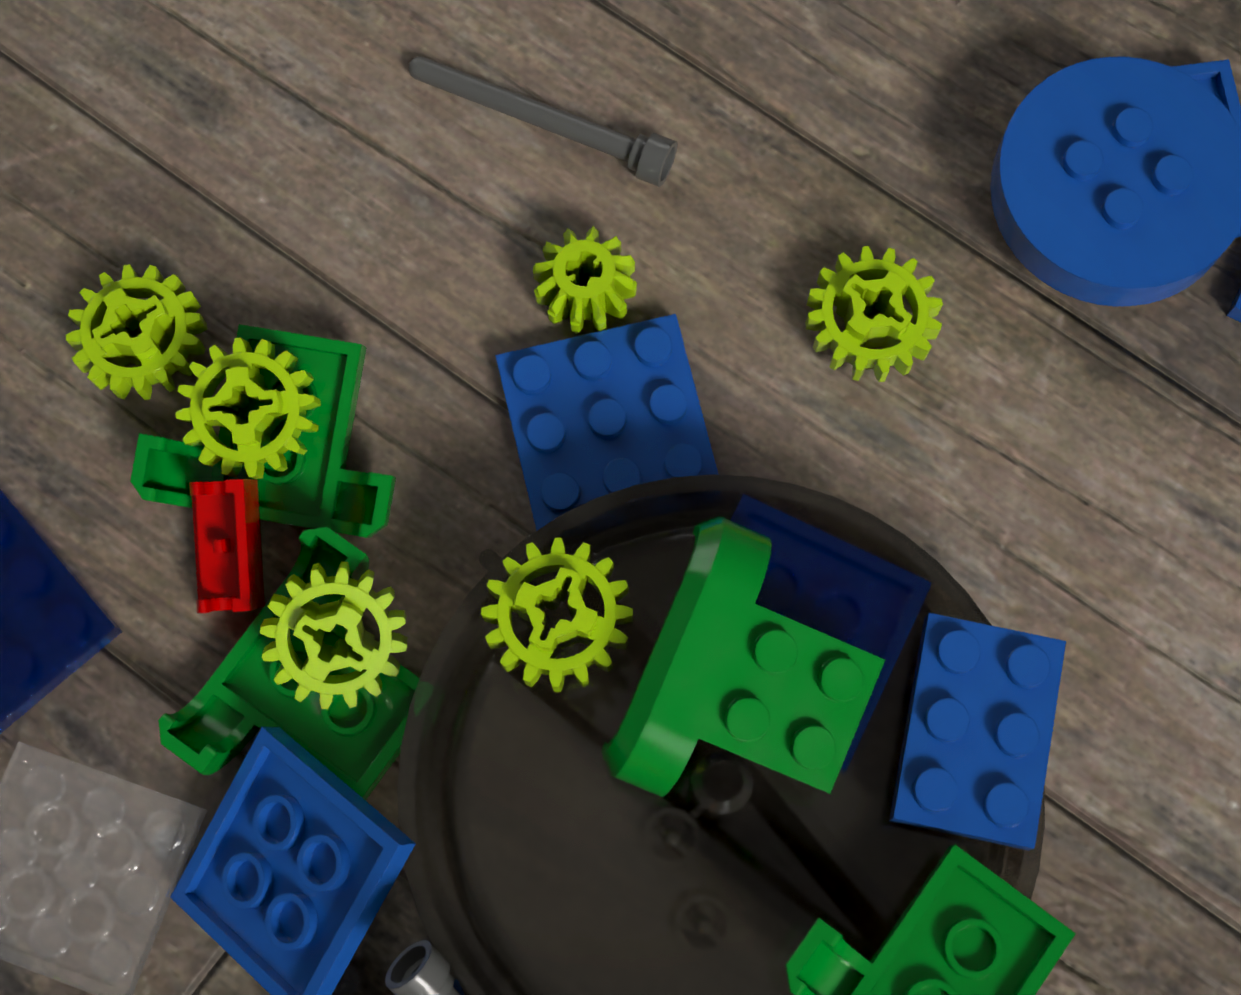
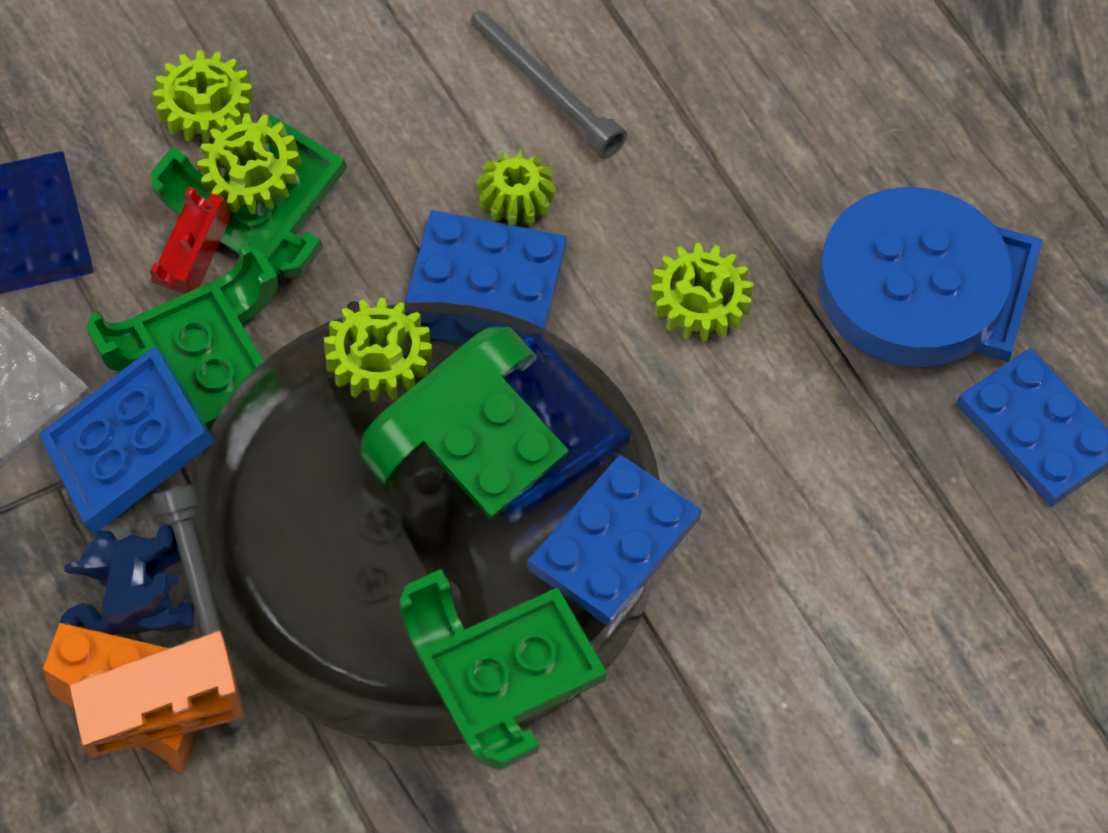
camera: 20 degrees right, 15 degrees down
(312, 620) = (213, 328): lime gear -> none

